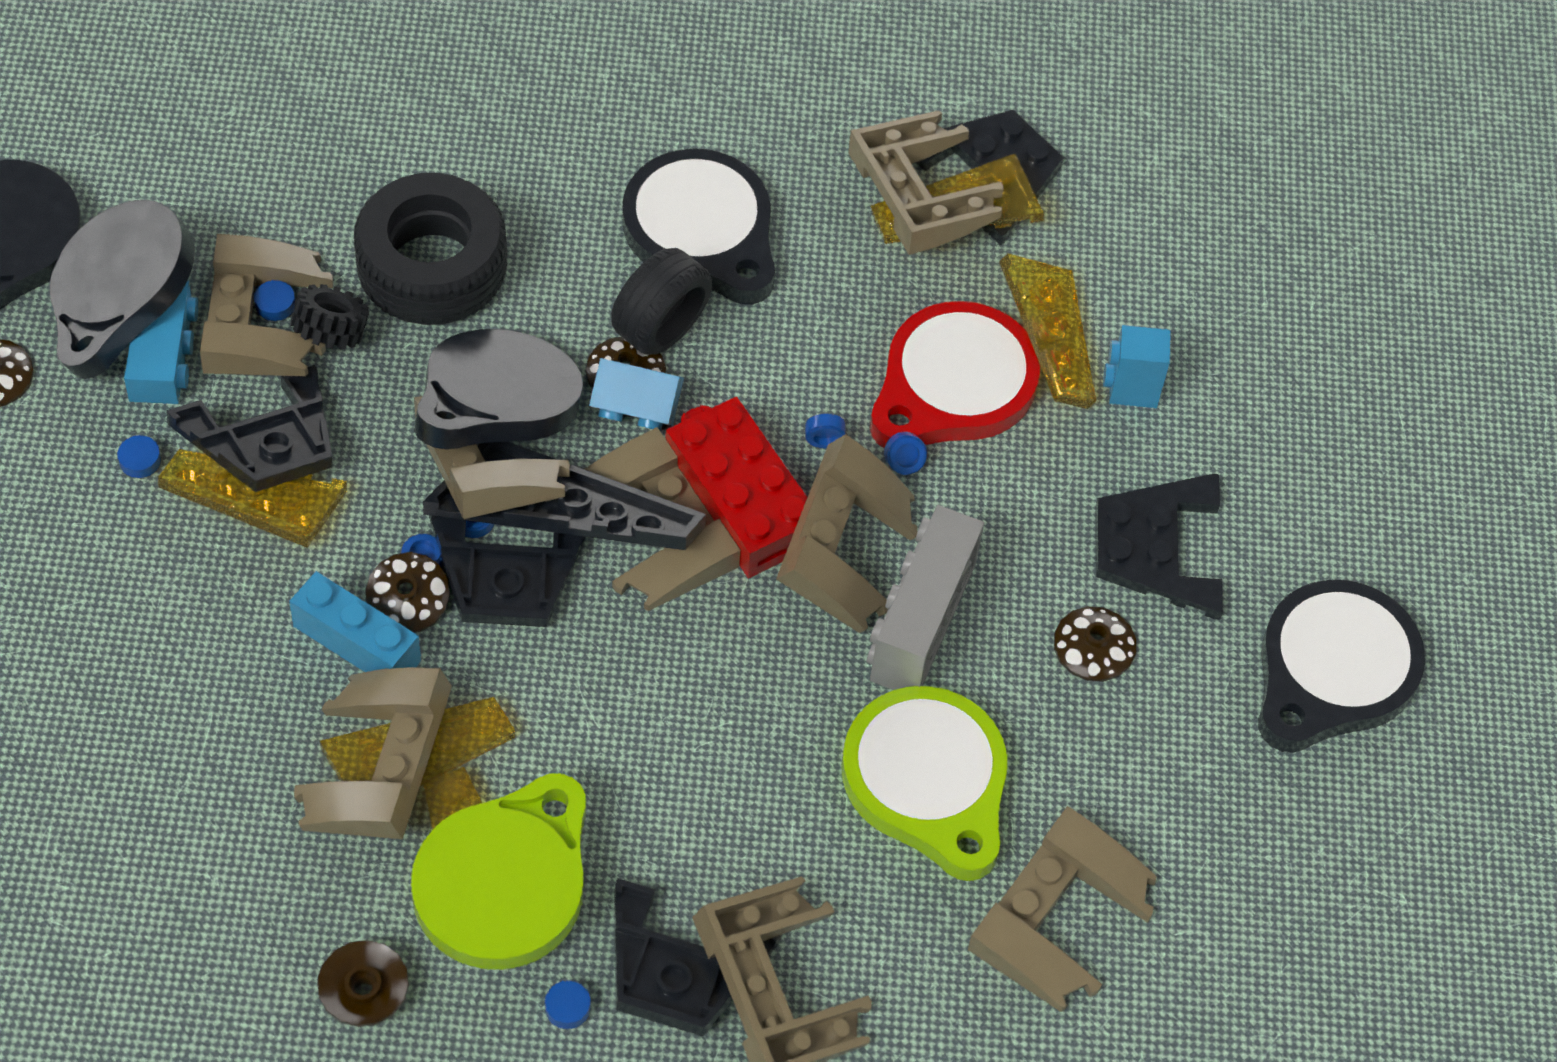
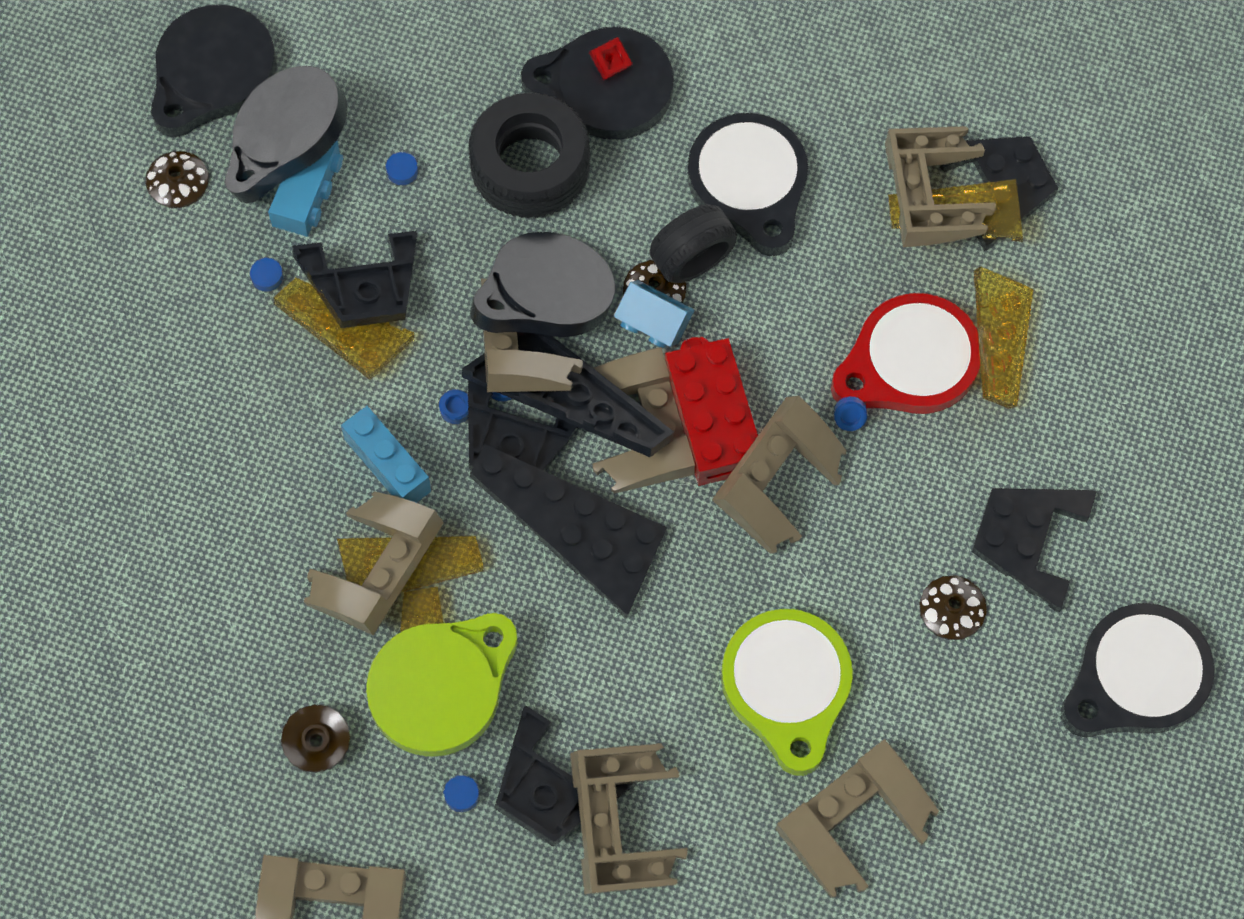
camera: 20 degrees right, 10 degrees up
(228, 337) = (356, 196): dark tan wedge -> none
(329, 316) = (436, 195): black tyre -> none
(423, 604) = (441, 449): dark brown dish -> none
(497, 121) = (610, 58): none -> red tile
(504, 142) = (609, 107): none -> black piece
(625, 656) = (582, 529): none -> black wing
(824, 429) = (792, 380): blue tile -> none
(925, 599) = (825, 543): light grey brick -> none
(1137, 366) = (1057, 386): dark azure brick -> none

